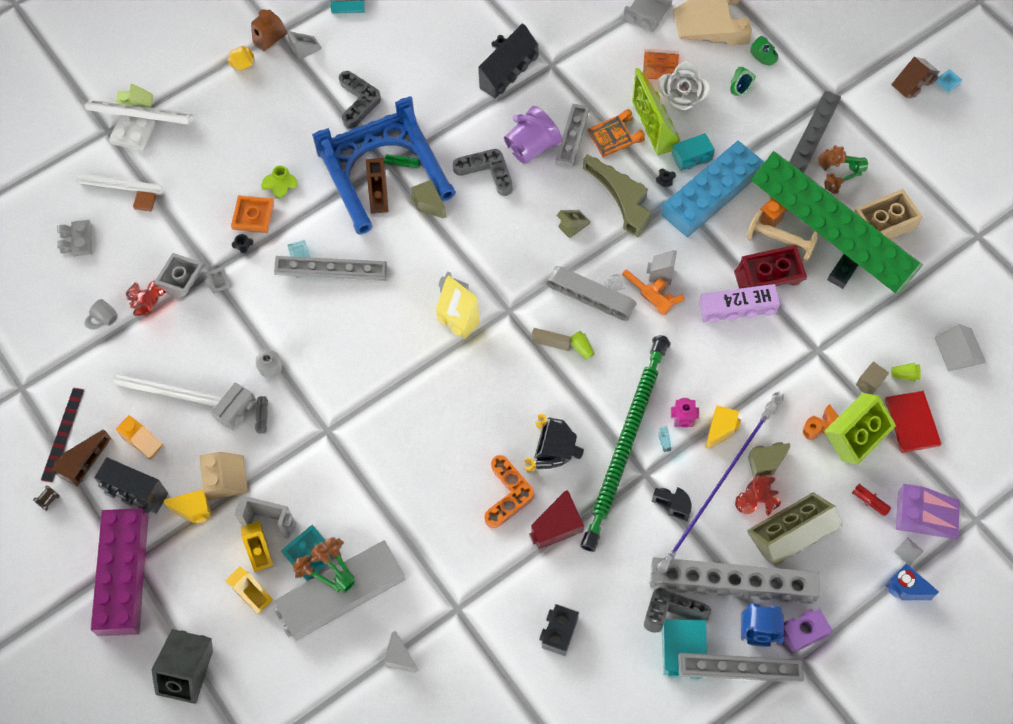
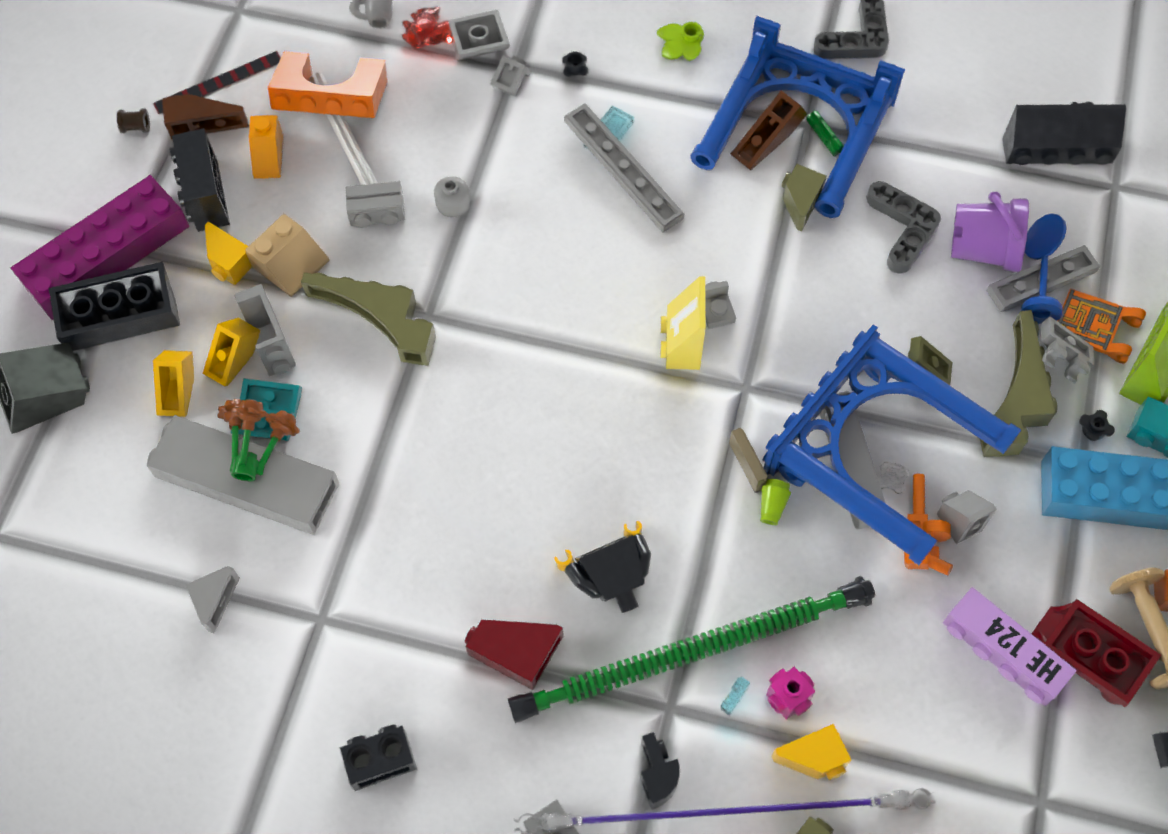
camera: 50 degrees right, 0 degrees up
(122, 395) = (356, 97): none -> orange arch
(171, 588) = (114, 306): none -> black slope
(252, 214) = (617, 46): orange plate -> none
(261, 414) = (390, 238): dark grey axle -> none
(302, 448) = (382, 305): none -> olive arch
(515, 490) = (518, 571): orange beam -> none
(559, 116) = (1043, 240): none -> blue piece
(575, 316) = (880, 363): none -> blue arch
(619, 155) = (1067, 346): none -> light grey plate

